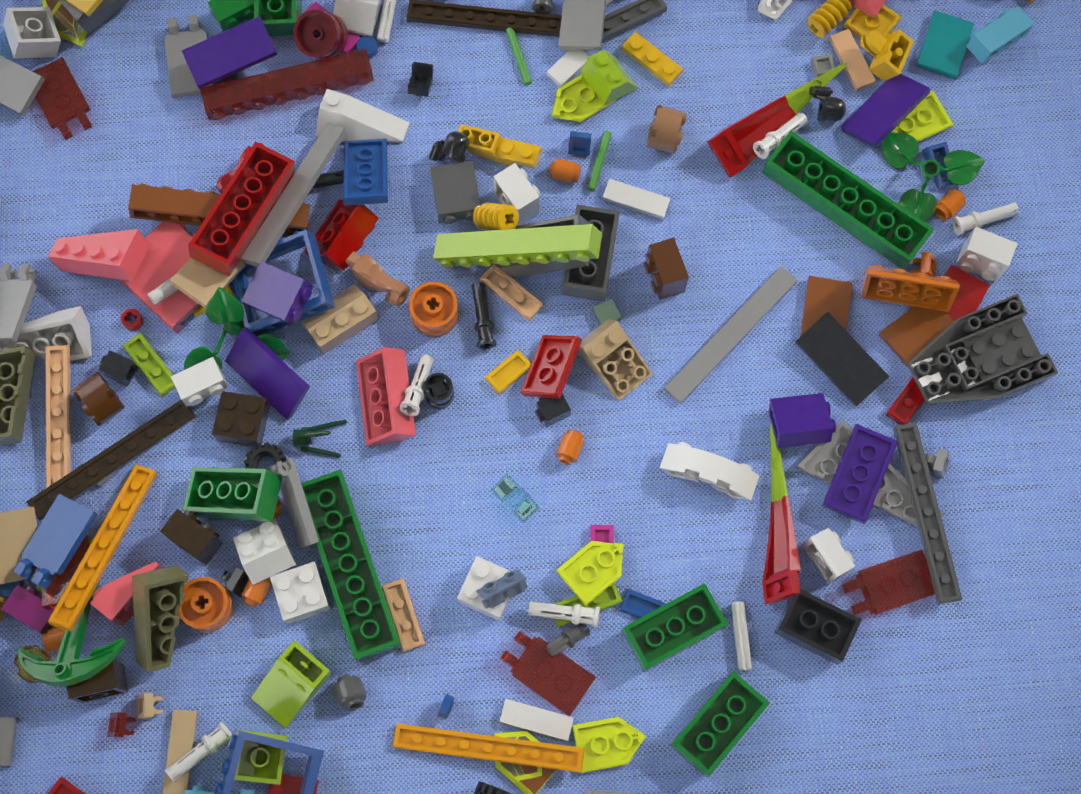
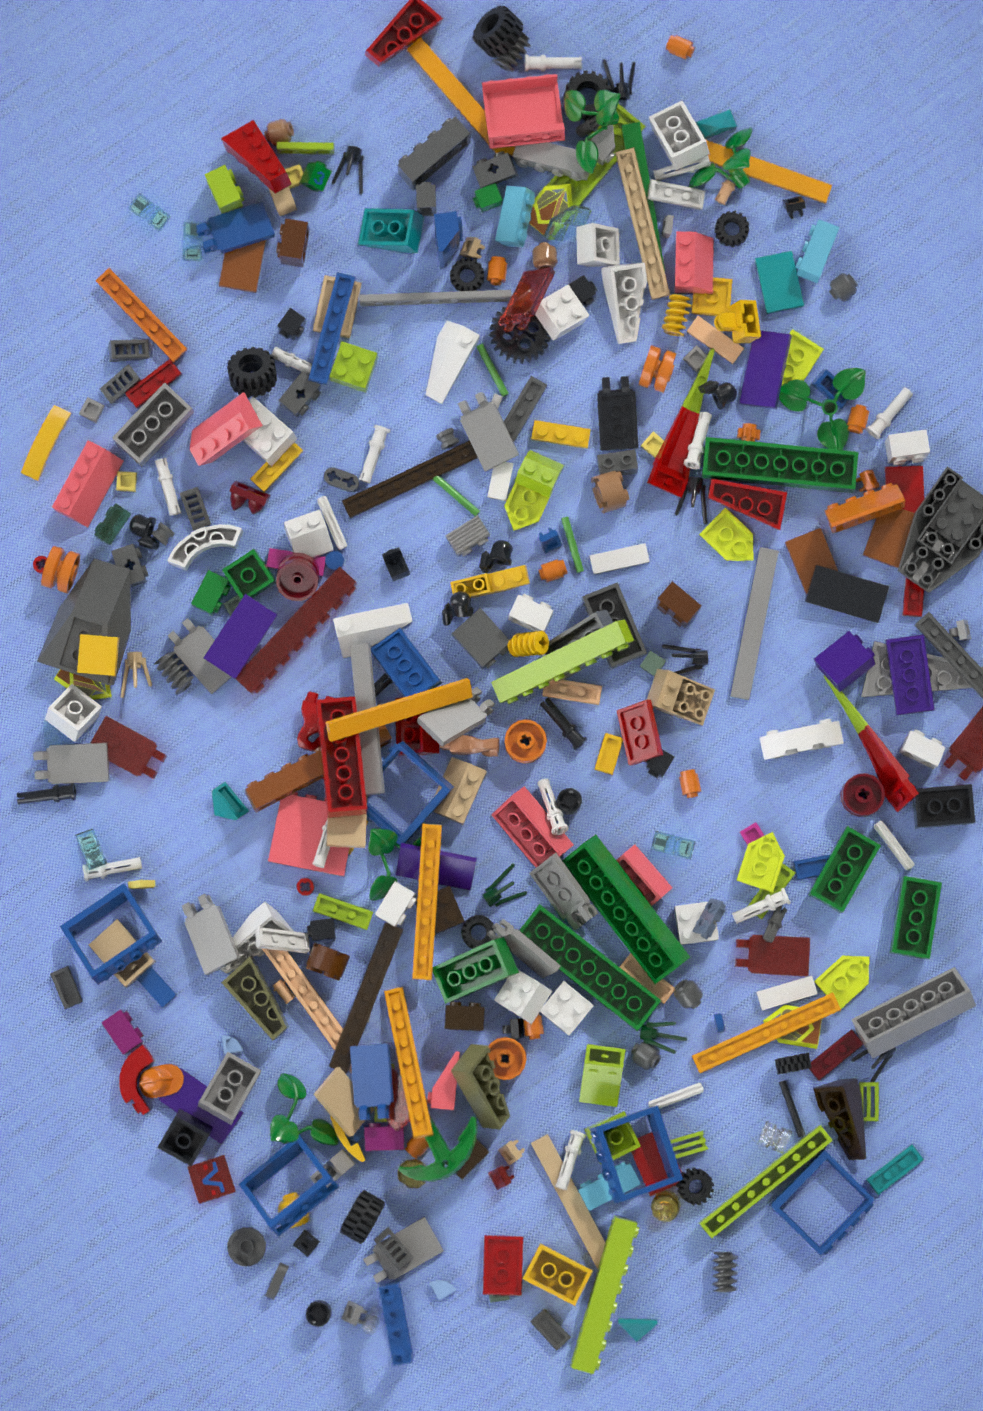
camera: 30 degrees left, 10 degrees up
(39, 404) = (284, 992): none -> light nougat pin
(68, 350) = (282, 940): none -> white tile
(102, 254) = (258, 853): coral wedge -> none
(115, 198) = (226, 803): none -> teal slope
(123, 26) = (134, 660): none -> tan plant
(150, 55) = (174, 672): none -> dark grey piece
(231, 398) = (427, 901): none -> light orange tile
(277, 293) = (410, 804): brick -> none
(327, 197) = (399, 709): none -> light orange tile
(354, 756) = (677, 1096): none -> white axle
(367, 671) = (650, 1033): none -> dark green plant
(375, 474) = (563, 891): none -> light grey tile
(381, 242) = (456, 719): none -> light grey tile
(424, 529) = (625, 909): none -> green brick
(433, 656) = (688, 994): none -> dark grey head
(456, 509) = (644, 875): none -> coral slope
(504, 95) = (468, 536): none -> light grey brick
(523, 127) = (499, 554): none -> black piece
(655, 332) = (698, 657): none -> black plant
(697, 110) = (619, 461): none -> dark grey brick
(715, 72) = (617, 416): none -> black tile
(726, 566) = (873, 792): none -> dark red wheel
(733, 114) = (652, 444): none -> light yellow tile
(750, 176) = (695, 486): none -> black plant
(756, 241) = (729, 537): none -> neon yellow tile
(780, 47) = (658, 369): none -> orange wheel
(798, 216) = (755, 502): none -> red wedge
(836, 152) = (748, 432): none -> orange gear
(1006, 80) = (843, 287): none -> dark grey head

